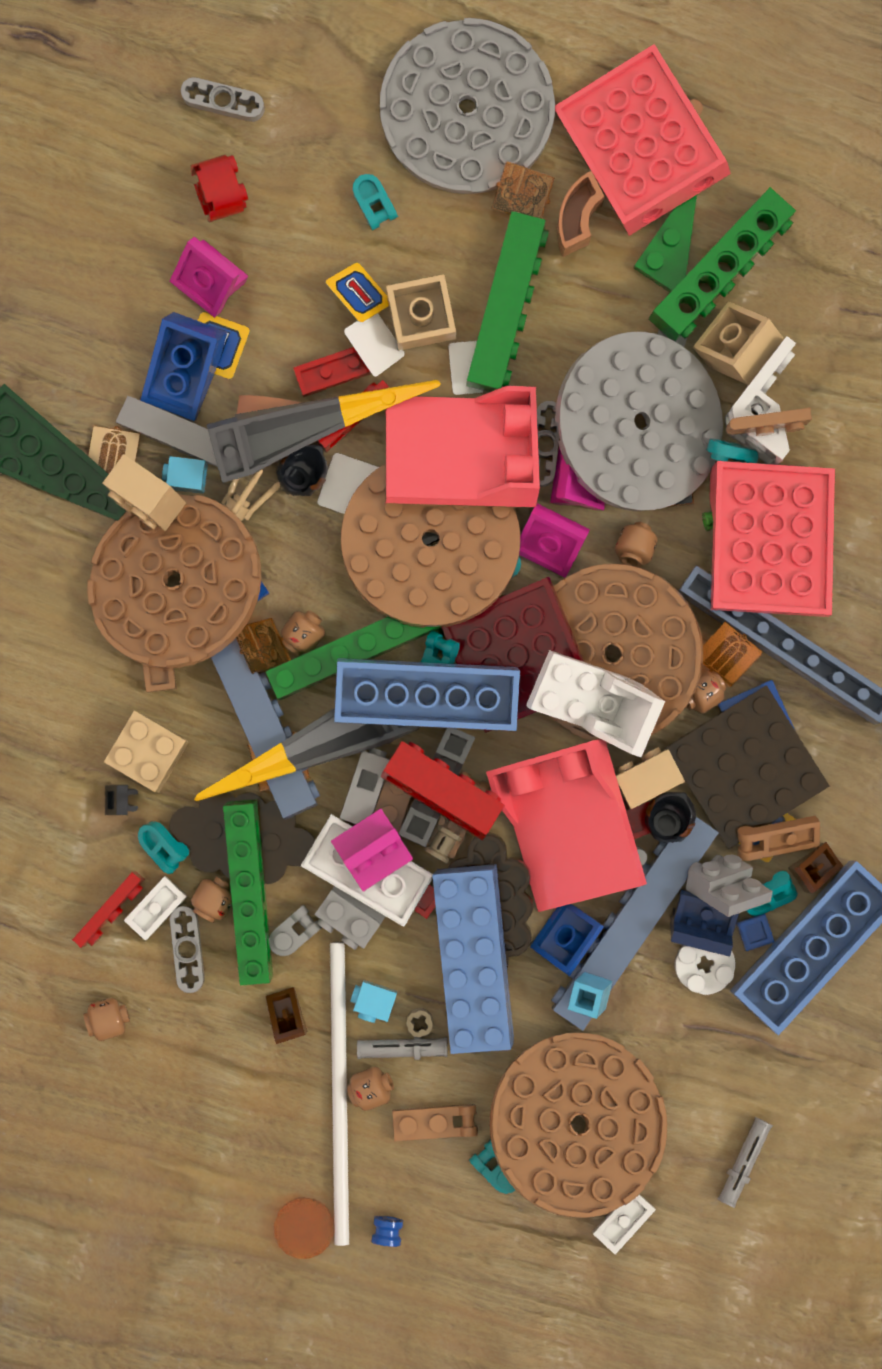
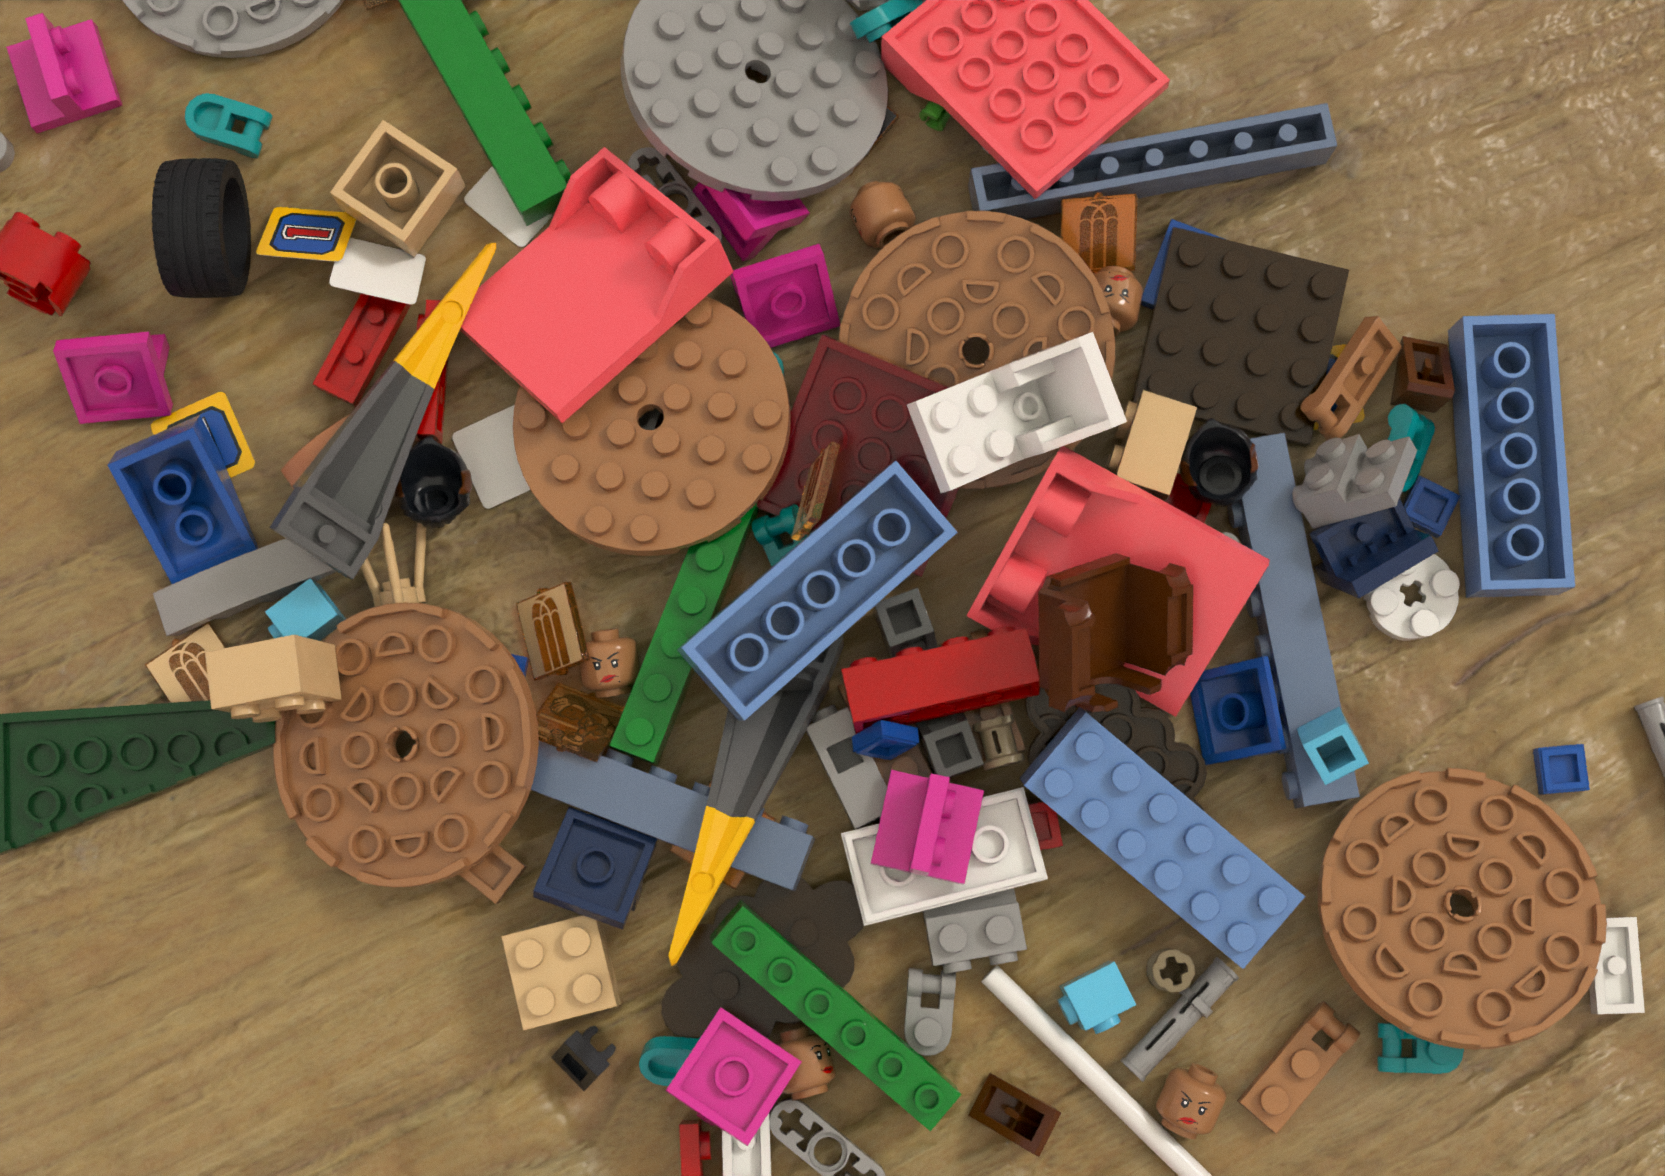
camera: 45 degrees left, 5 degrees down
(175, 875) = (733, 1076): none -> dark pink bracket
(205, 721) = (595, 868): none -> dark blue bracket
(291, 592) = (552, 631): none -> piece
(310, 246) = (201, 228): none -> black tyre
(319, 101) = (62, 73): none -> dark pink bracket
(391, 792) = (885, 740): none -> blue tile
(470, 648) = (815, 491): none -> clear orange piece
(542, 835) = (1110, 616): none -> reddish brown piece
(692, 1111) = (1561, 769): none -> blue tile

